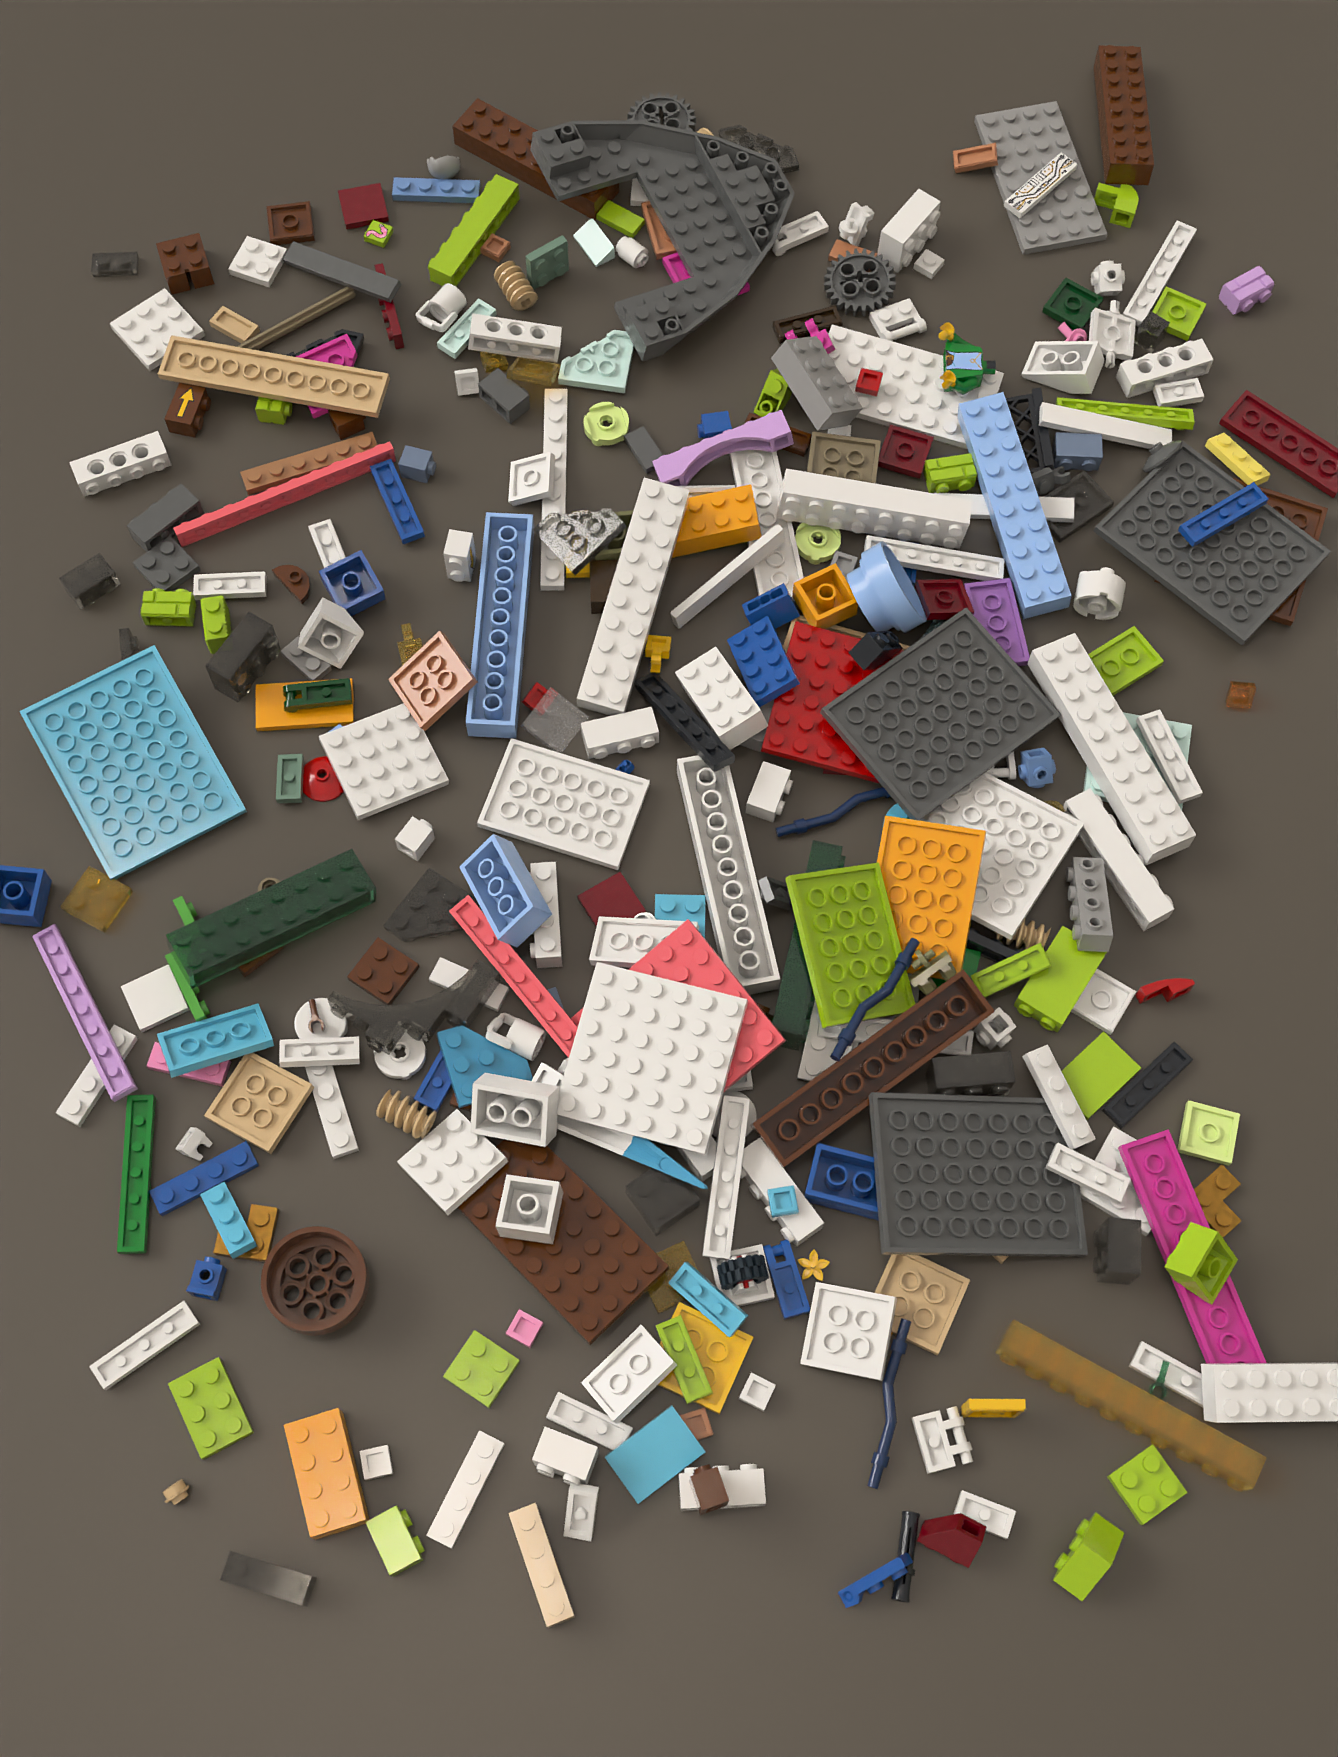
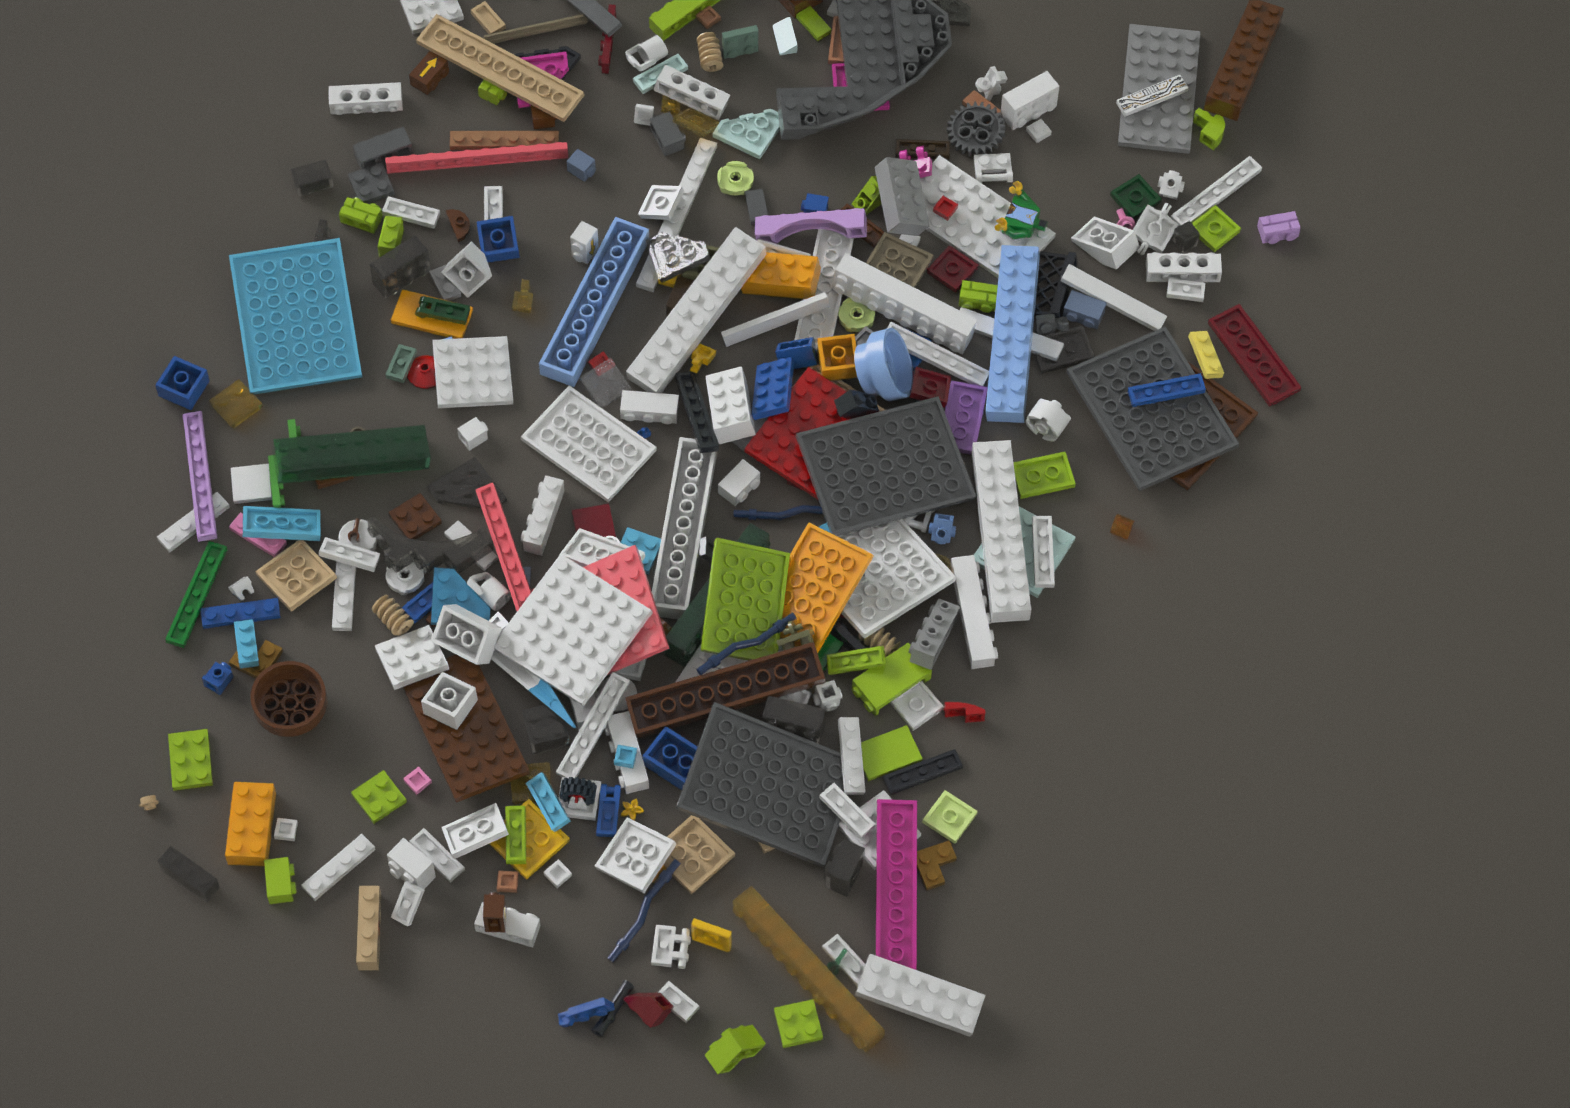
camera: 20 degrees right, 5 degrees down
(144, 1345) = (162, 705): white plate -> none
(397, 501) = (556, 188): blue plate -> none
(432, 680) = (528, 326): plate -> none
(505, 890) = (519, 487): light blue brick -> none
(632, 252) = (810, 52): white brick -> none
(654, 1454) = (466, 887): medium azure tile -> none
(799, 232) = (946, 75): white plate -> none
(975, 158) = (1112, 58): nougat tile -> none
(1151, 415) = (1151, 298): lime plate -> none
(1160, 453) = (1145, 329): dark grey dish -> none
(1201, 1262) = (897, 892): lime slope -> none

